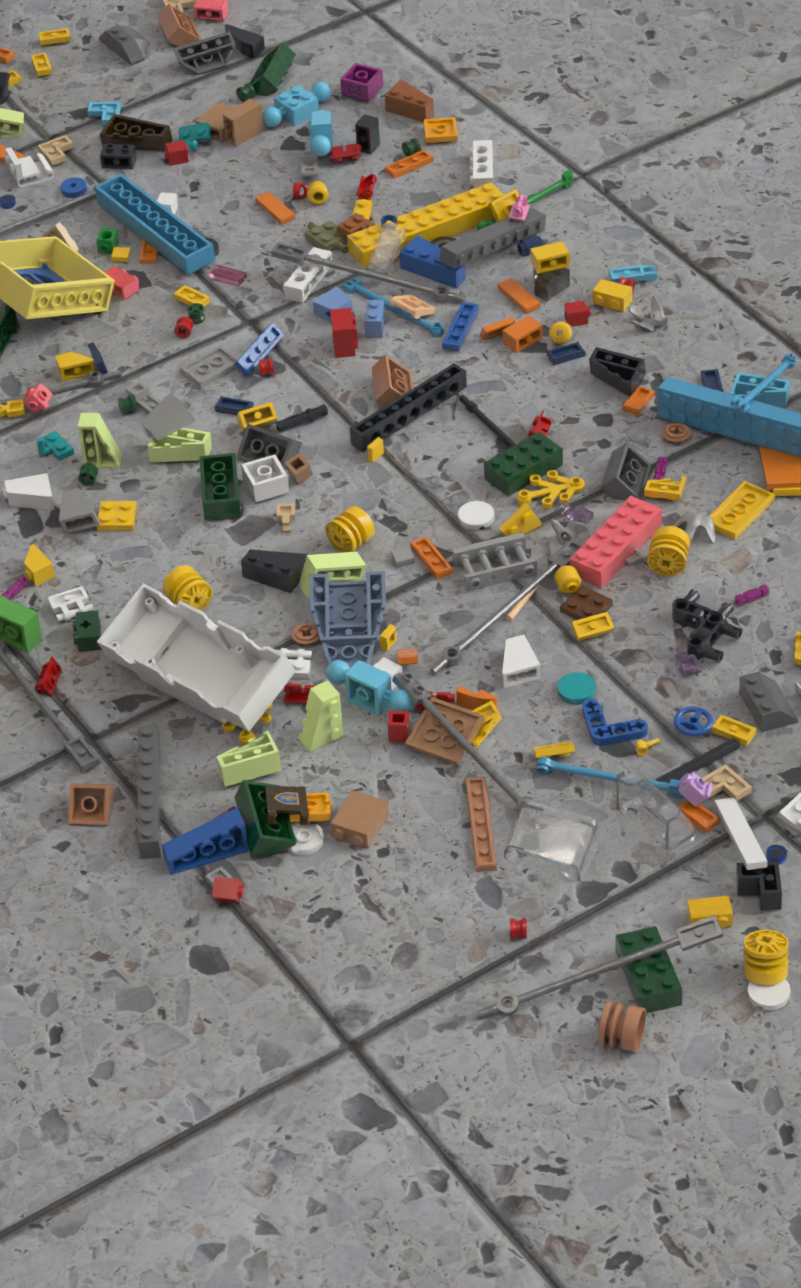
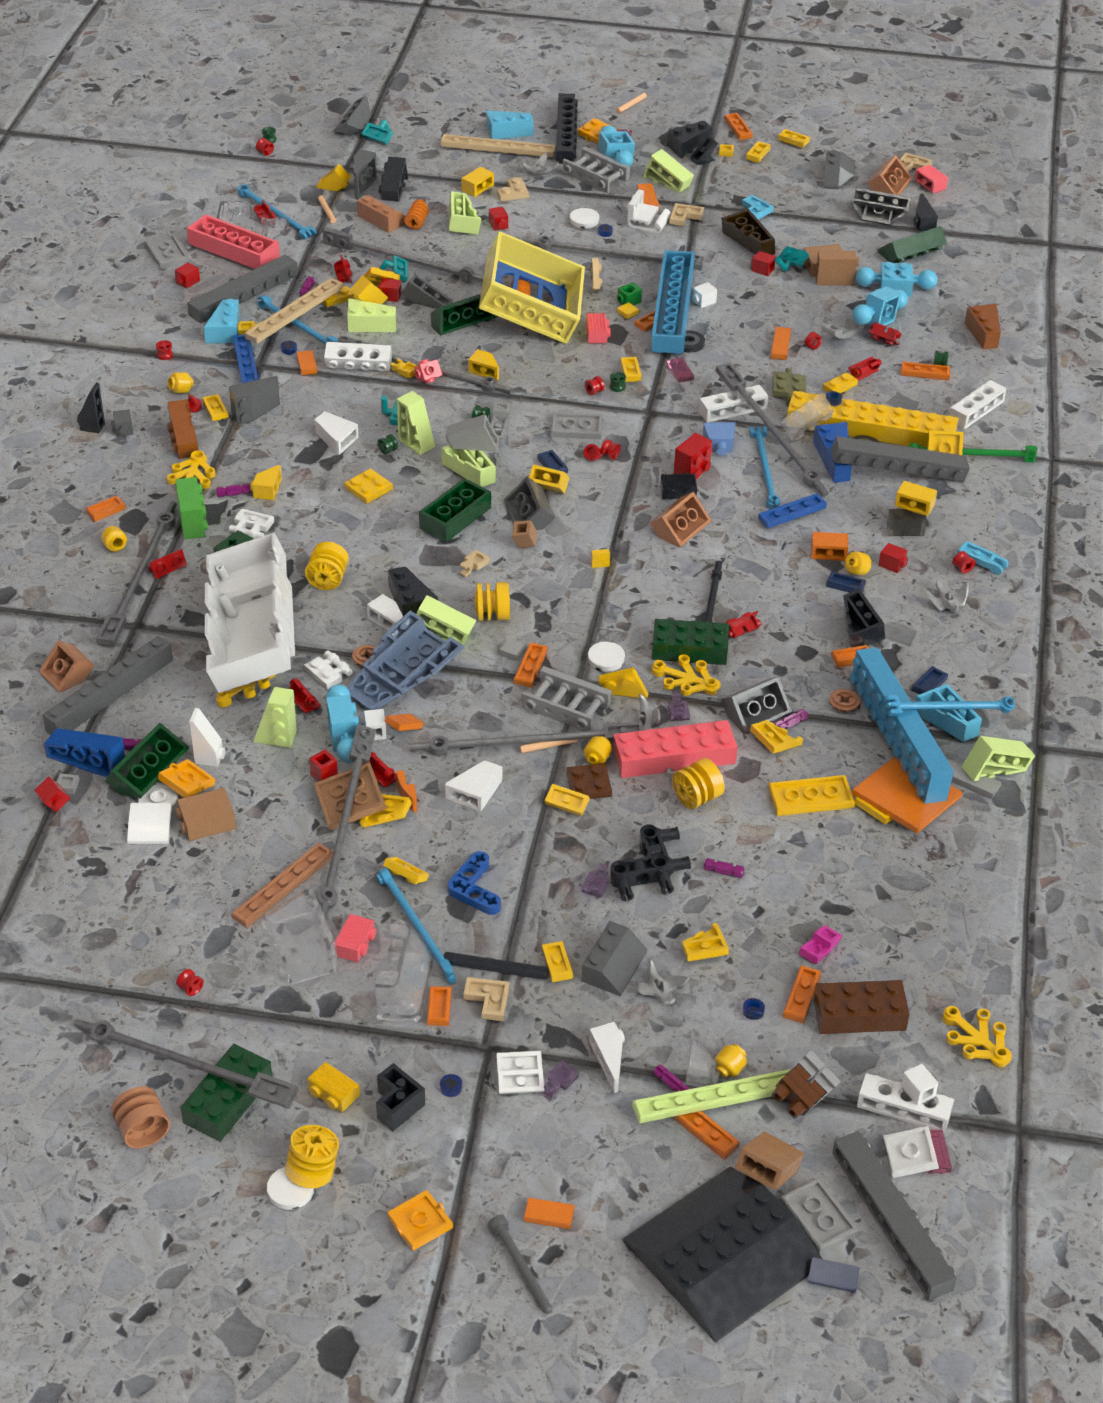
camera: 40 degrees right, 0 degrees up
(73, 187) = (660, 244): blue piece -> none
(76, 512) = (342, 463): light grey slope -> none
(97, 357) = (506, 370): dark blue tile -> none
(118, 156) = (719, 242): black brick -> none
(245, 92) = (873, 250): dark green wheel -> none
(250, 761) = (179, 709): yellowish green wedge -> none
(256, 378) = (592, 452): none -> red tile
(259, 349) = (624, 433): plate -> none
(265, 478) = (492, 525): white brick -> none
(283, 595) = (384, 612): none -> white slope
(286, 801) = (169, 760): dark brown flag -> none
(290, 769) = (205, 741): none -> white slope
(298, 419) = (588, 502): black pin -> none
(317, 193) = (823, 349): yellow head -> none
(326, 856) = (149, 823): none -> white slope
(354, 224) = (813, 386): dark orange plate -> none
(356, 361) = (677, 485): none -> black brick
(361, 82) = (967, 290): magenta brick -> none
(367, 133) = (915, 328): black brick -> none
(374, 318) = (734, 464): medium blue brick -> none
(388, 638) = (413, 699): yellow tile -> none
(408, 407) = (666, 542): black brick -> none
(412, 305) = (780, 472): light nougat plate -> none
(440, 130) = (982, 359): light orange plate -> none
(496, 328) = (807, 527): orange tile -> none
(519, 209) = (947, 449): bright pink hinge -> none
(519, 295) = (871, 517): orange tile -> none
(528, 243) = (932, 482): dark blue brick -> none
(576, 687) = (492, 837): teal tile -> none
(585, 806) = (354, 938): none -> coral brick
(612, 295) = (941, 562): yellow brick -> none
(642, 747) = (473, 918): yellow hand -> none
(692, 724) = (533, 932): blue piece -> none
(695, 788) = (451, 979): lavender brick -> none
(697, 520) = (759, 778): light grey animal -> none
(740, 833) = (435, 1044): white tile -> none

